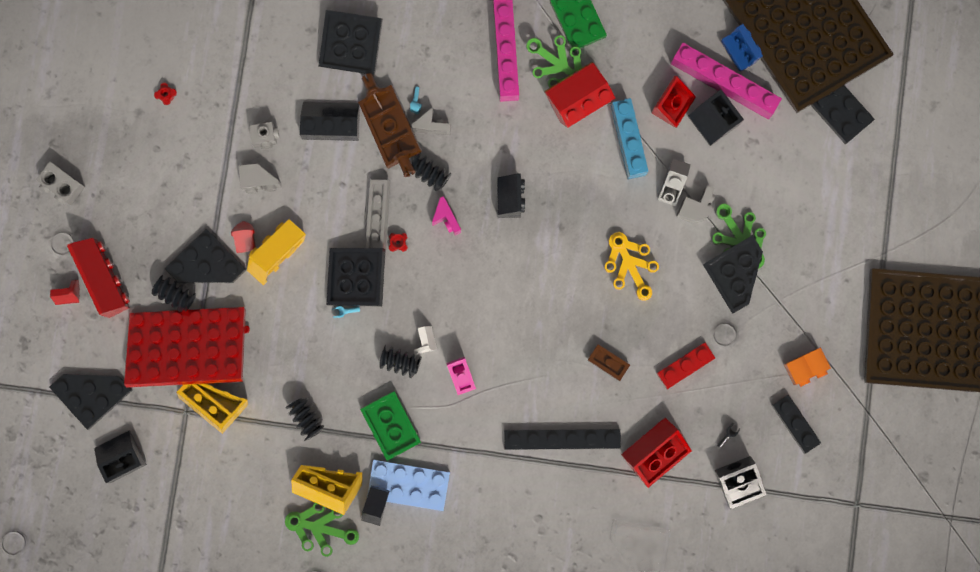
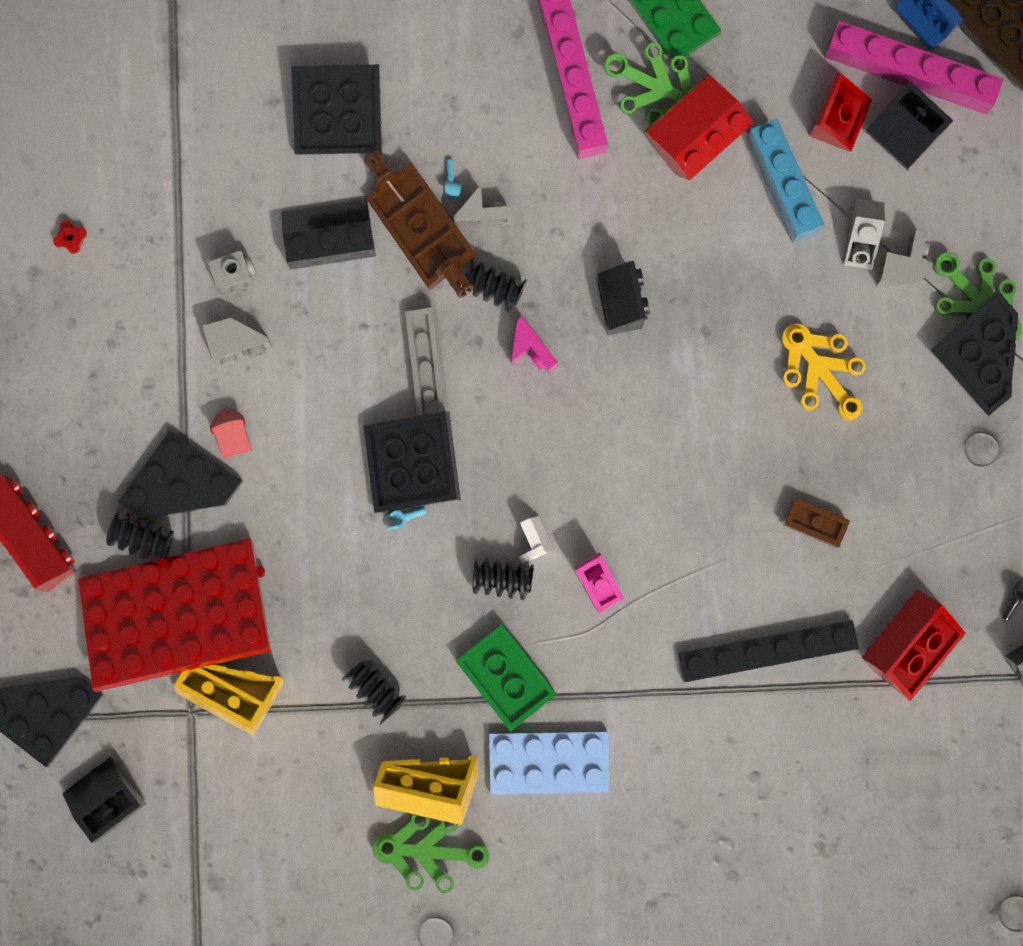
camera: 10 degrees left, 0 degrees up
(274, 250) = (281, 444): yellow wedge -> none
(375, 505) = (505, 802): black slope -> none
(398, 237) = (468, 391): red plate -> none
(685, 365) = (933, 506): red plate -> none

